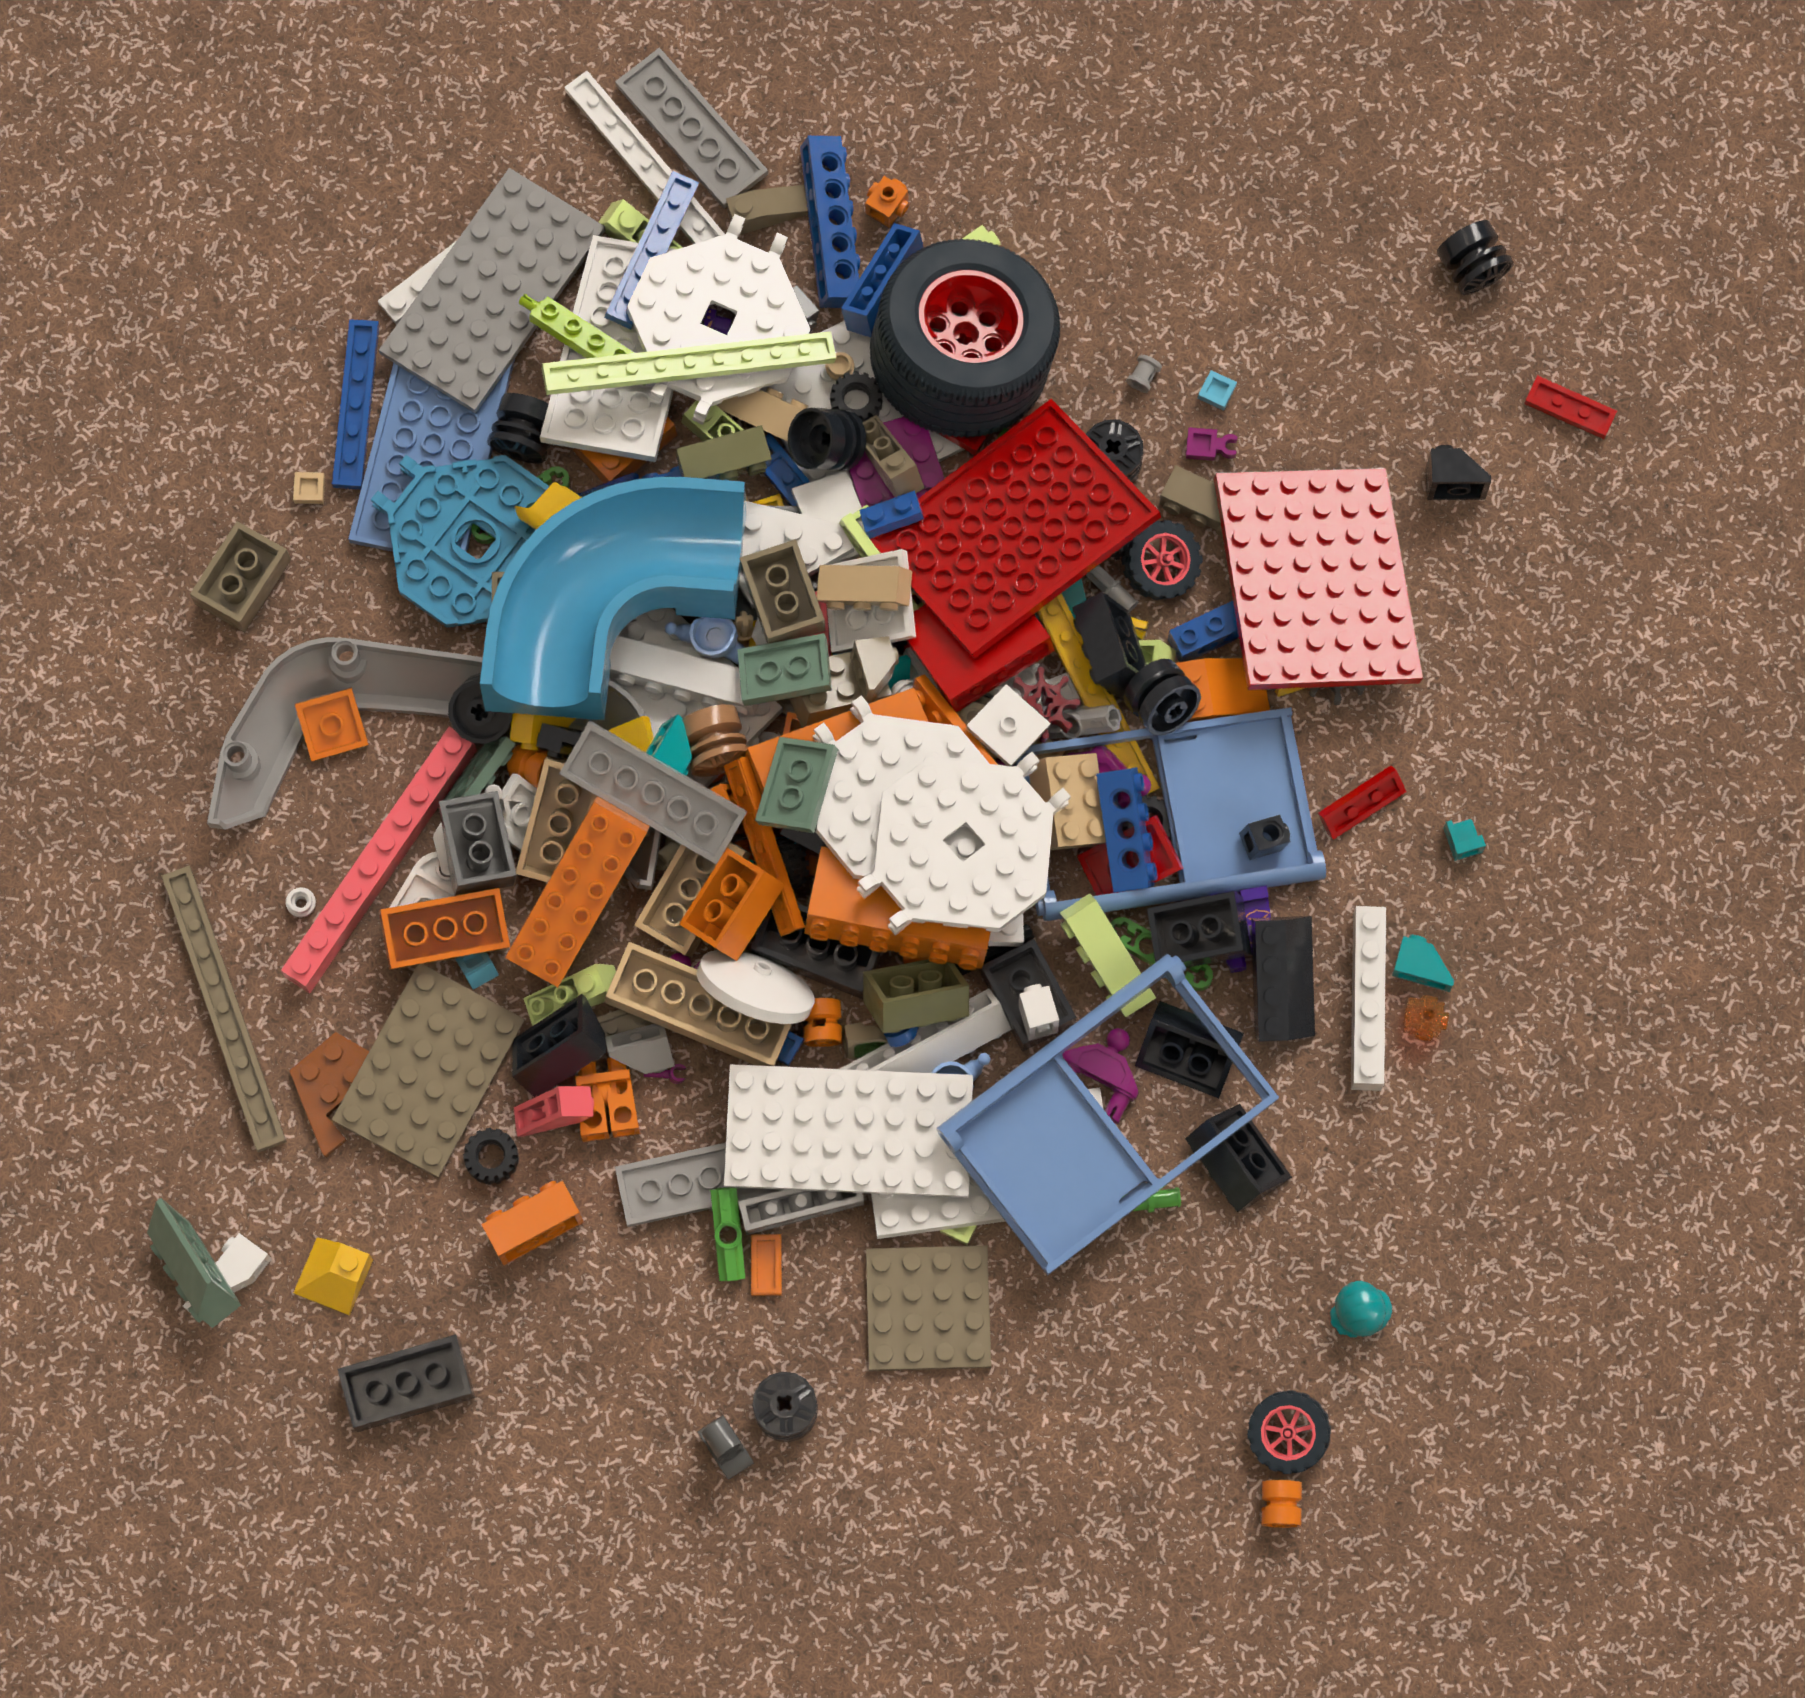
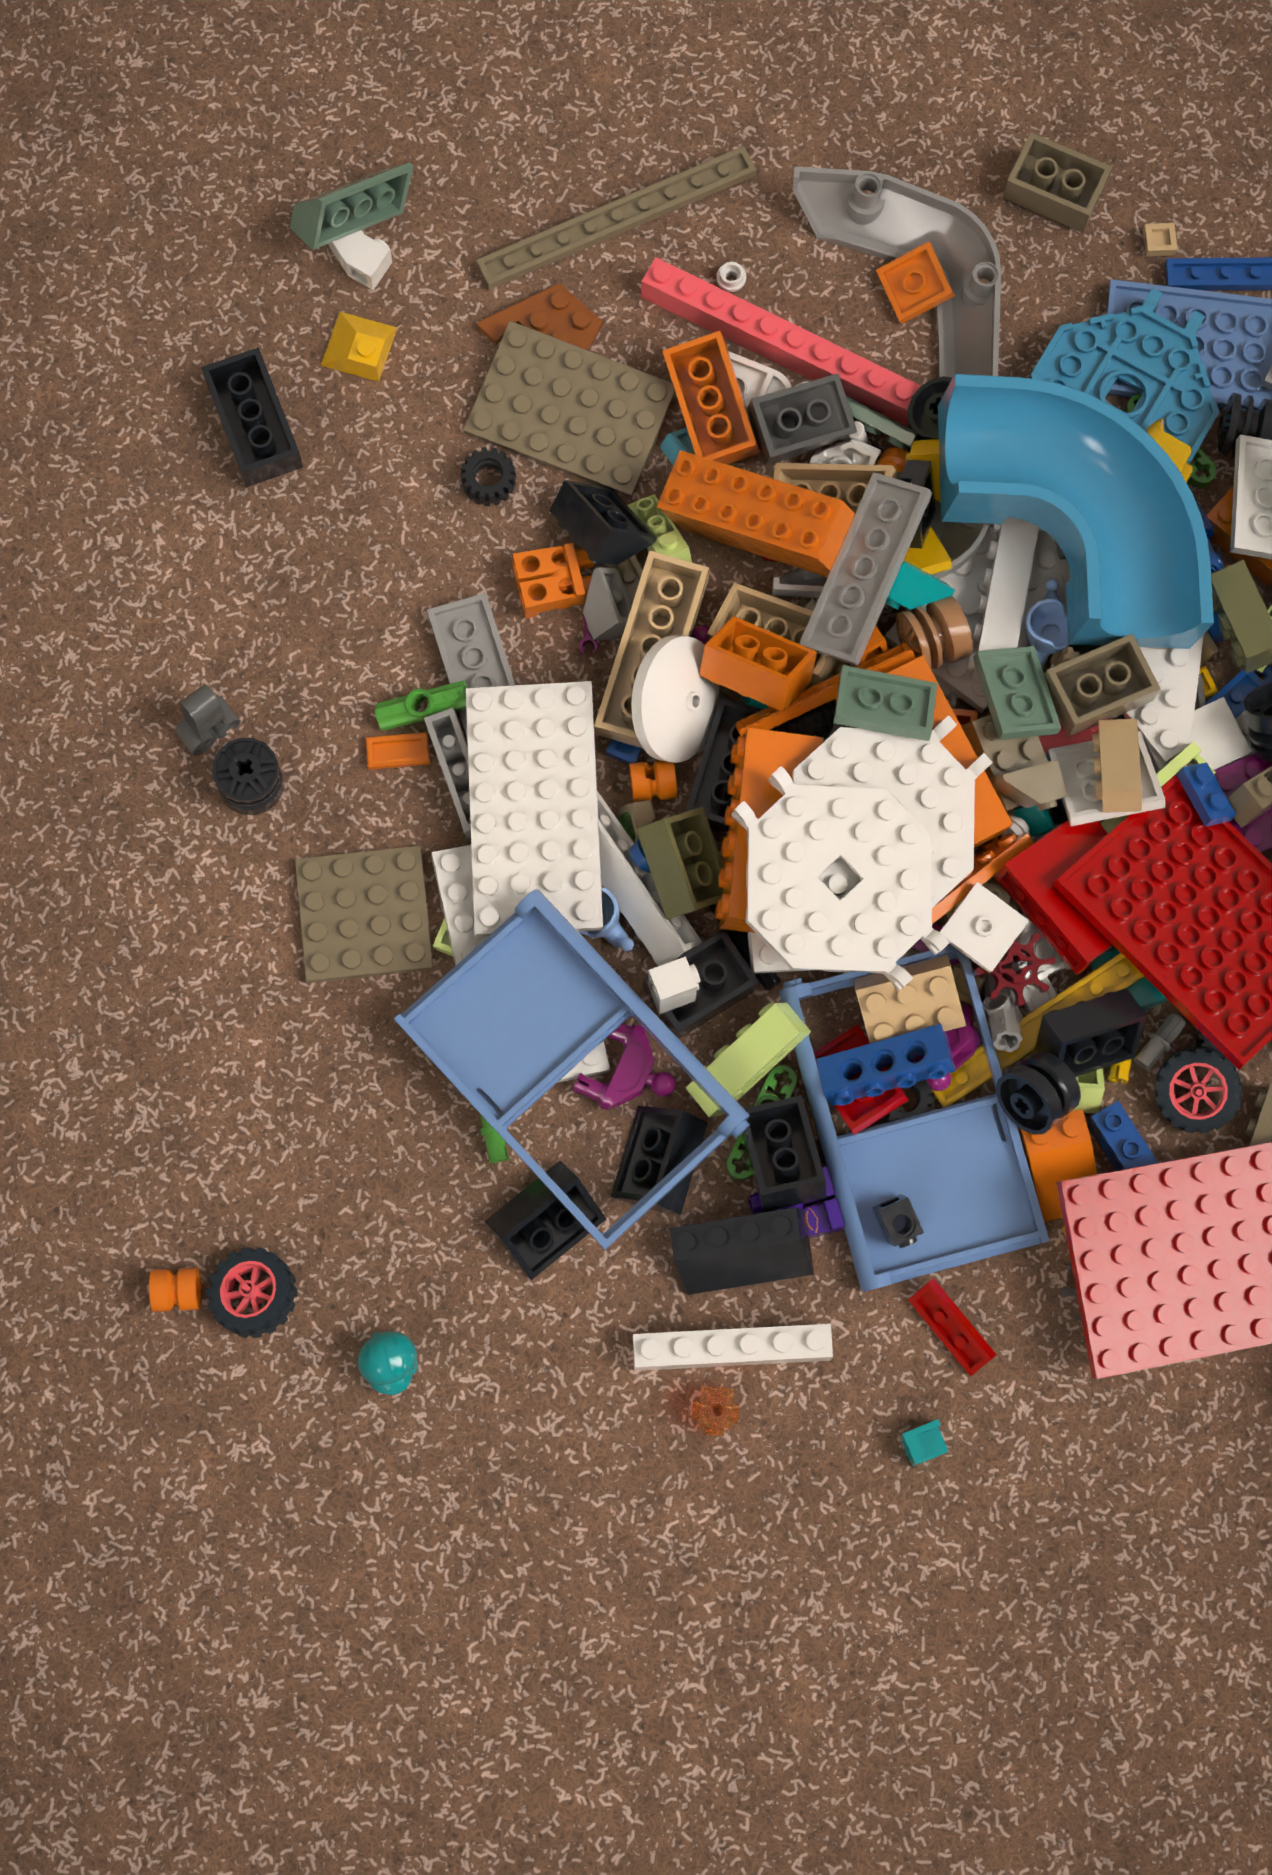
camera: 80 degrees right, 0 degrees up
(532, 1221) = (420, 515): orange brick -> none
(554, 1110) = (535, 526): coral slope -> none
(1421, 964) = (777, 1402): teal slope -> none

